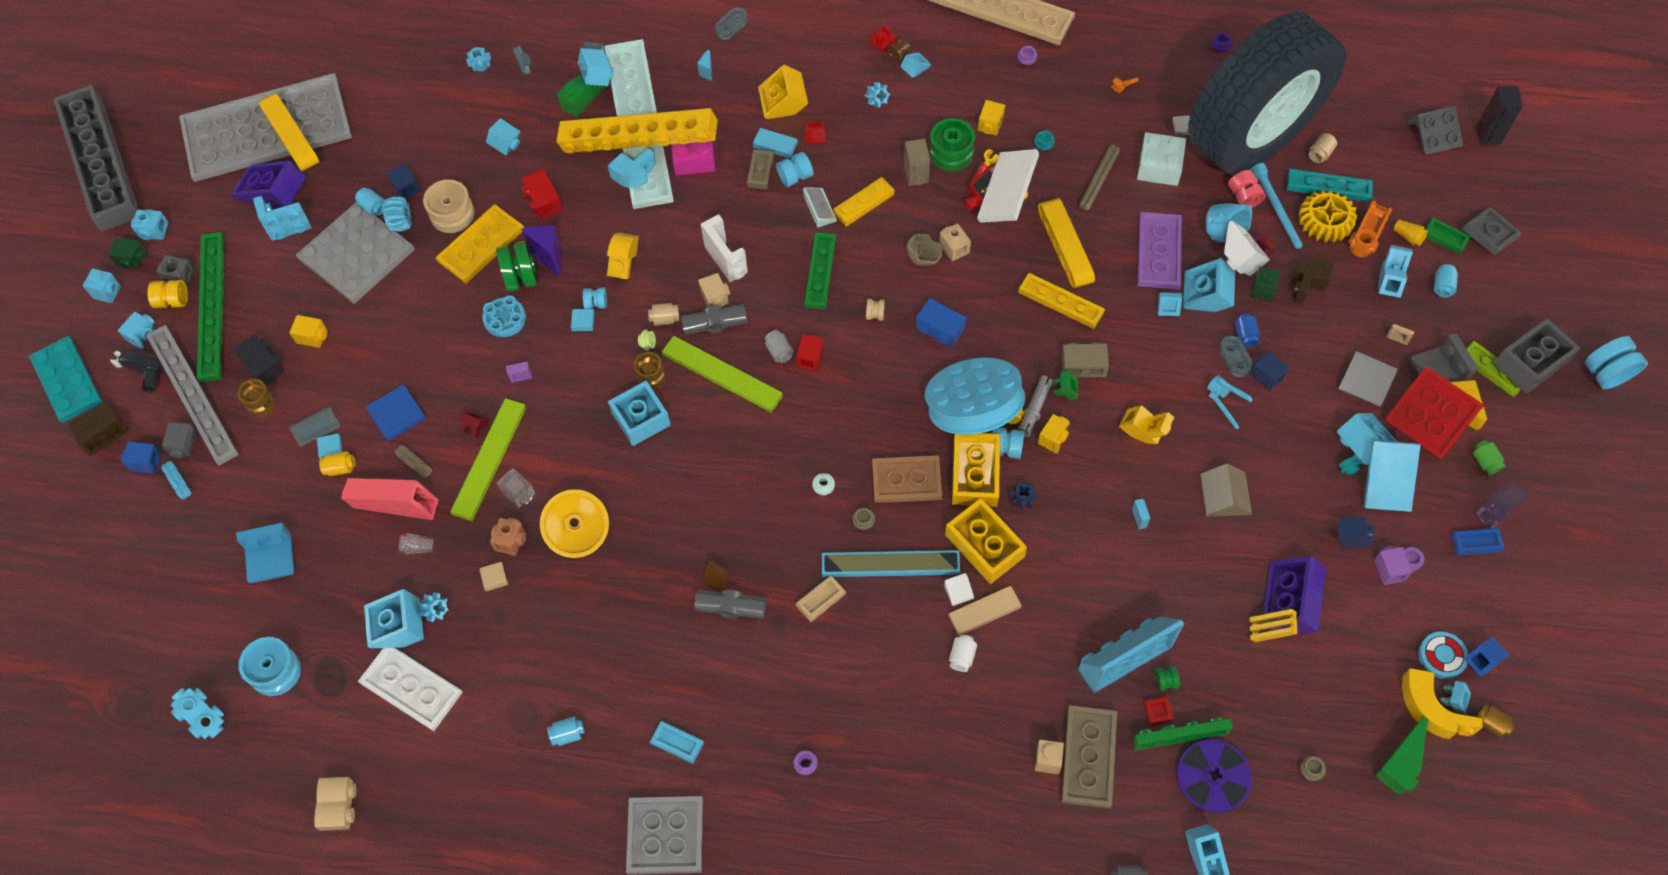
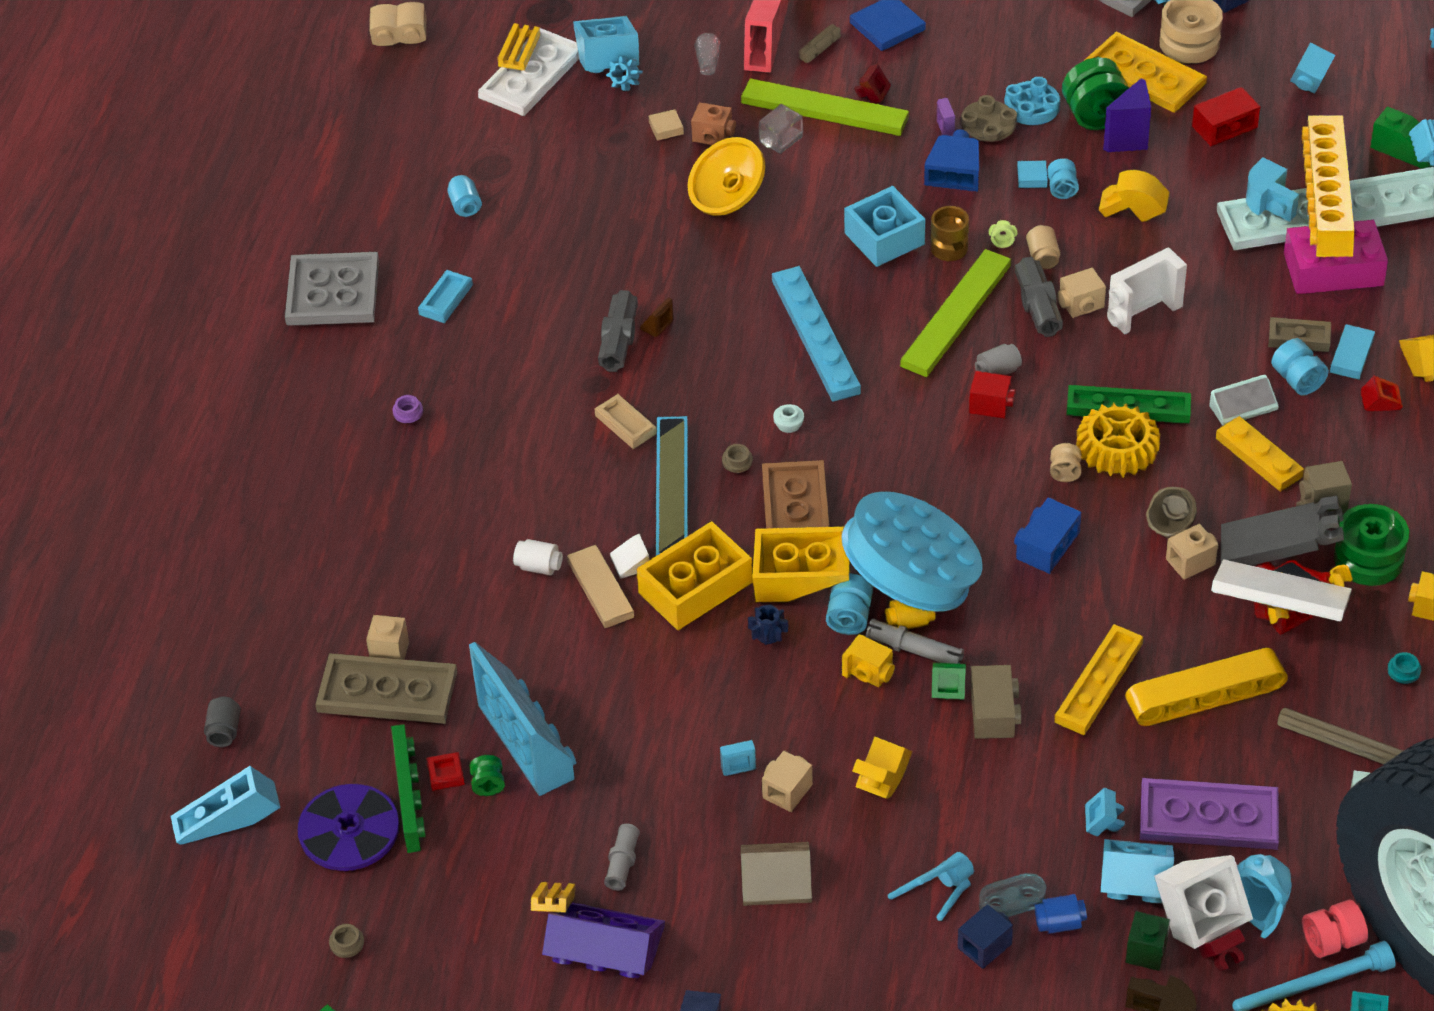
camera: 90 degrees right, 15 degrees down
(385, 704) = (524, 32): none -> yellow tile
(522, 345) = (988, 119): none -> dark tan dish
(568, 367) = (953, 162): none -> blue torso
(736, 467) = (816, 334): none -> medium azure plate
(856, 271) = (1118, 431): none -> yellow gear
(950, 189) = (1282, 533): none -> dark grey tile
(1157, 483) = (786, 780): none -> tan brick
(1226, 587) = (621, 857): none -> light grey pin

